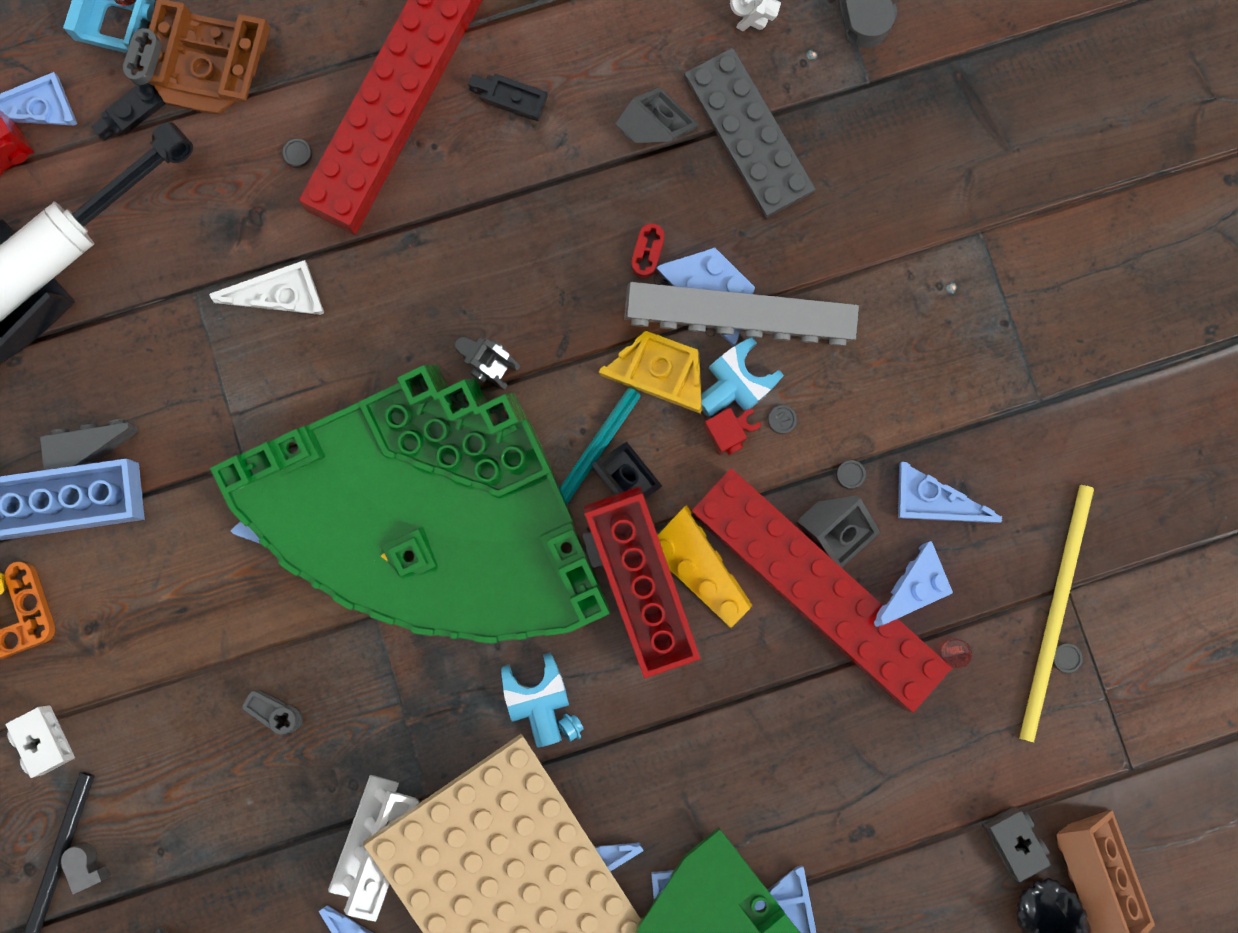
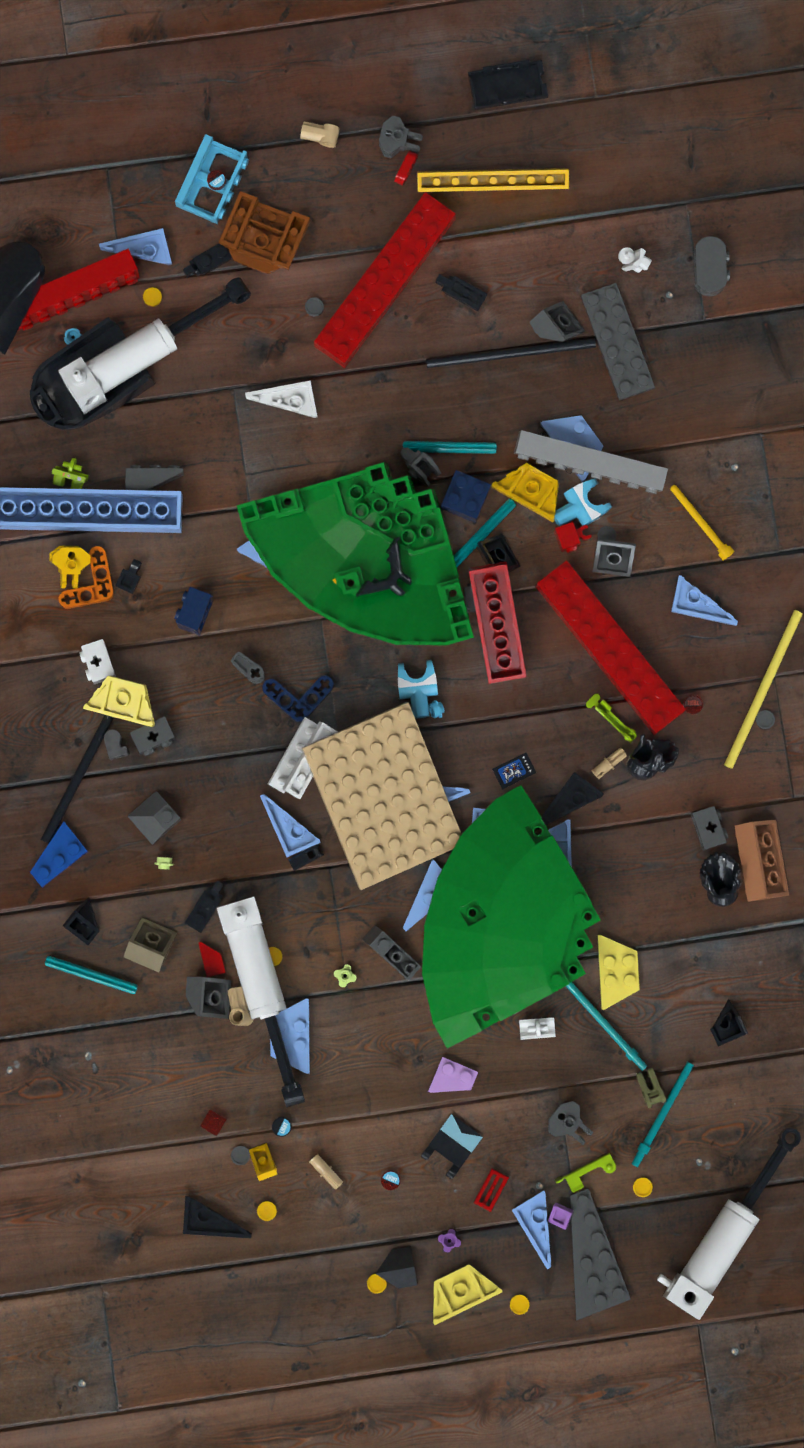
camera: 10 degrees right, 0 degrees up
(55, 175) = (152, 297): none -> yellow piece
(71, 605) = (128, 579): none -> black plate
(81, 801) = (122, 700): none -> light yellow wing
(123, 850) = (141, 736): none -> dark grey brick
(146, 56) = (221, 228): dark grey beam -> none
(173, 640) = (194, 611): none -> dark blue brick
(364, 752) = (302, 703): none -> dark blue beam
(469, 545) = (391, 581): none -> black piece
(530, 325) = (451, 447): none -> teal axle
(563, 395) = (465, 496): none -> dark blue brick
(595, 173) = (510, 353): none -> black piece
(653, 252) = (540, 412): red beam -> none
(702, 568) = (537, 622): yellow wing -> none
(704, 800) = (514, 771): none -> black sticker
(799, 451) = (613, 557): none -> dark grey slope
(800, 827) = (573, 795): none -> black wing
(827, 687) = (604, 709): none -> lime piece
(839, 527) = (631, 611): dark grey slope -> none
(845, 768) = (609, 763): none -> tan axle
(851, 474) = (645, 578): dark grey piece -> none
(912, 750) = (651, 757): none -> black hair
(919, 586) = (677, 655): light blue wing -> none
(961, 413) = (724, 550): none -> yellow piece

